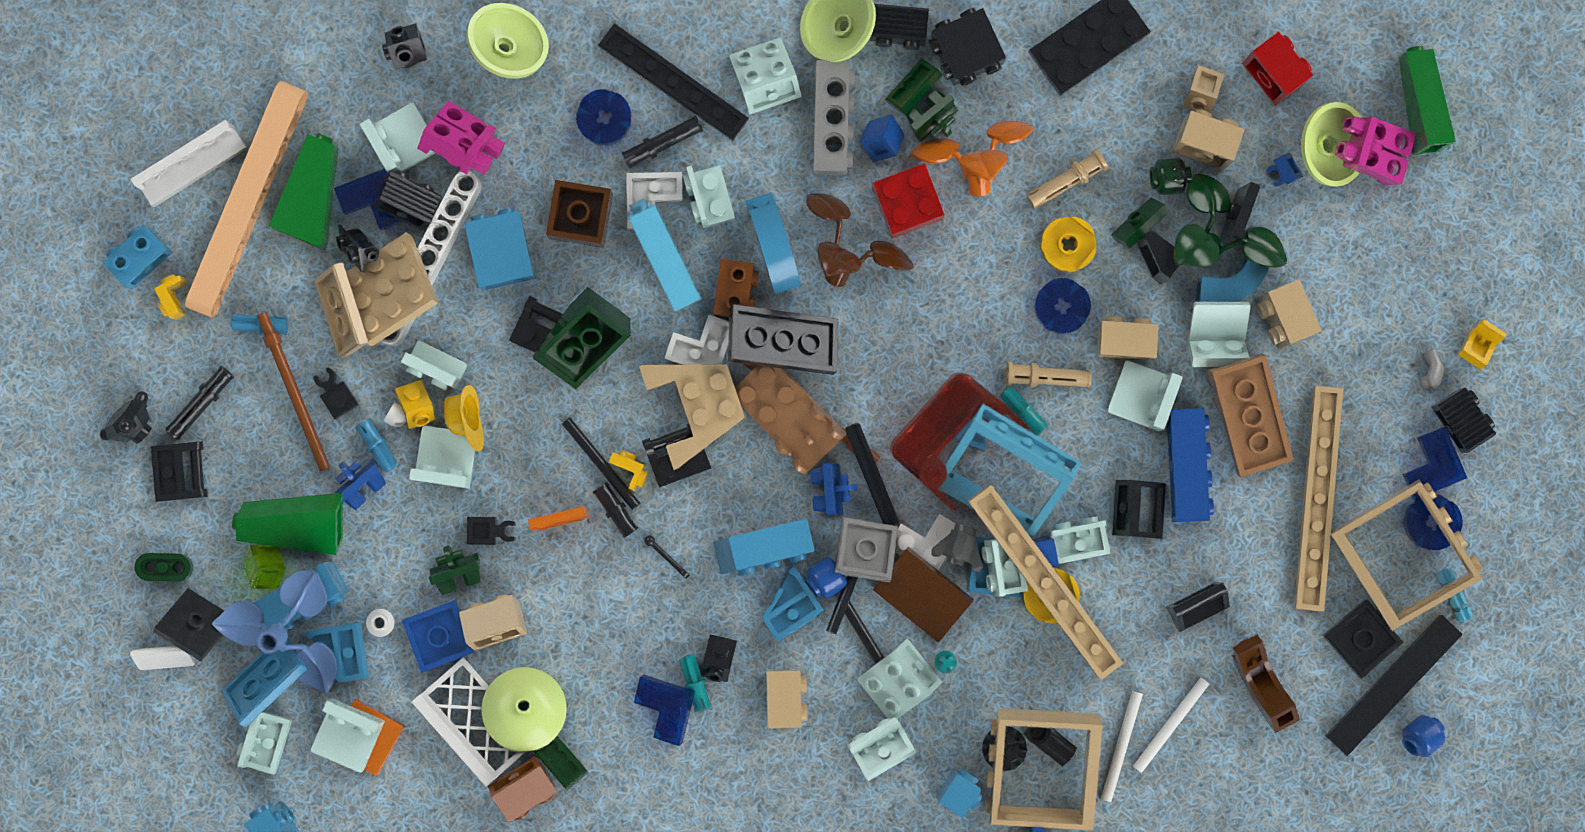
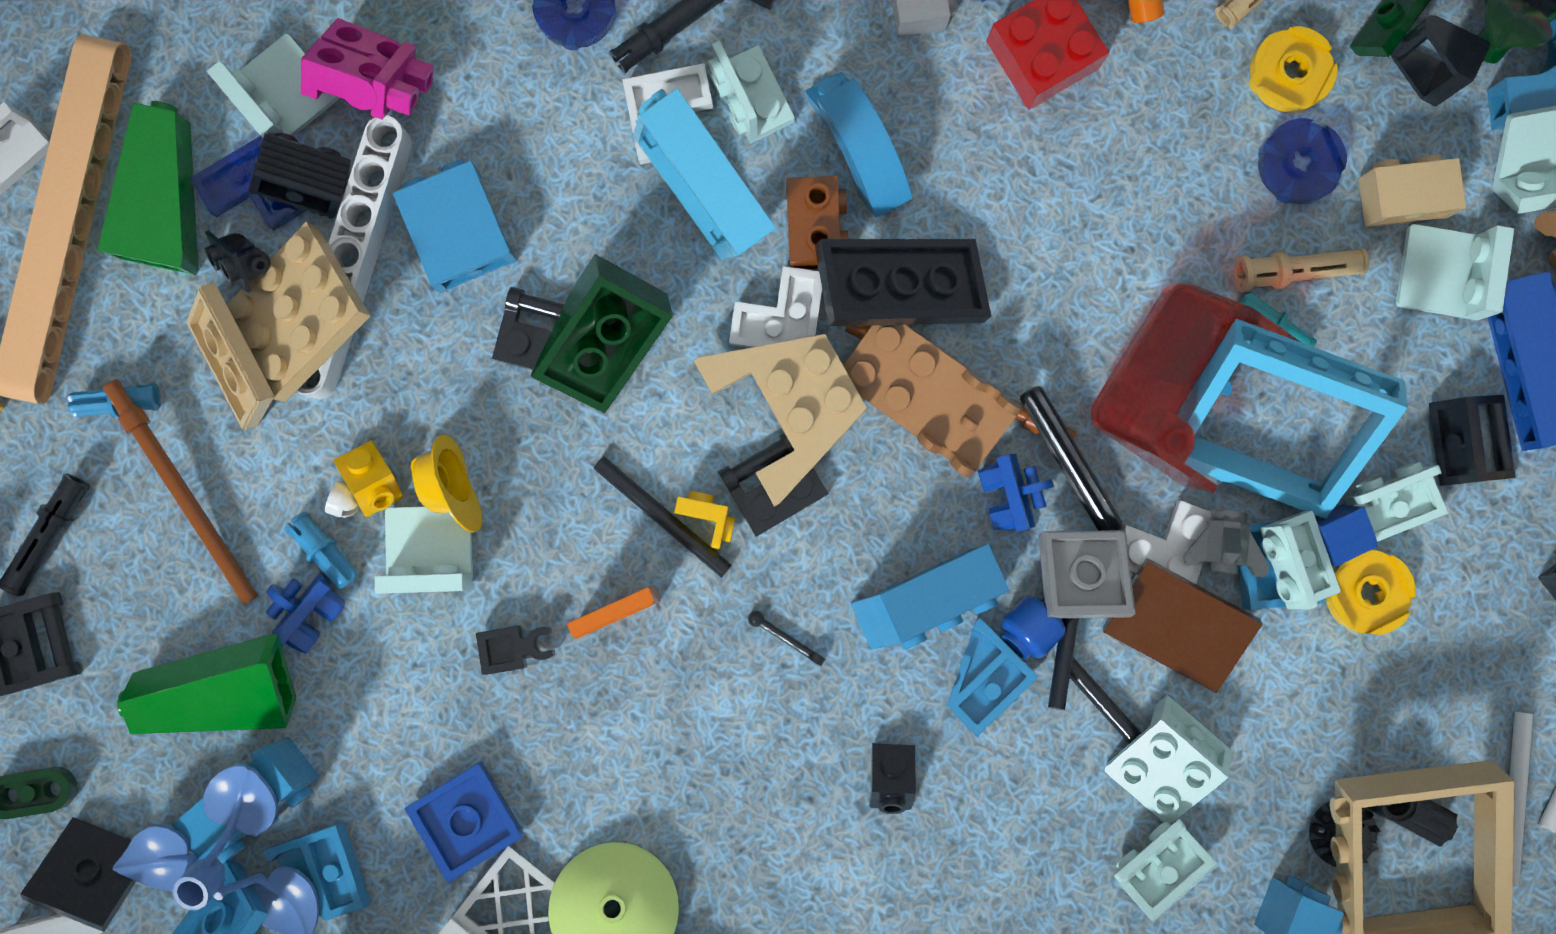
camera: 15 degrees left, 0 degrees up
(264, 567) = (182, 765): clear neon green panel -> none
(337, 397) = (250, 489): black plate -> none
(389, 622) = (386, 814): white plate -> none
(440, 366) = (387, 412): light aqua bracket -> none
(453, 565) = (467, 711): dark green hips -> none
(492, 622) = (542, 786): tan brick -> none
(579, 213) = (563, 149): reddish brown brick -> none
(615, 510) = (697, 582): black pin -> none
(673, 706) = (836, 858): clear blue plate -> none
(695, 682) = (864, 821): teal axle -> none
(784, 698) = (1006, 822): tan brick -> none
(839, 262) = (970, 143): reddish brown plant -> none
(945, 661) = (1237, 721): teal axle -> none
(1045, 581) = (1367, 572): tan plate -> none

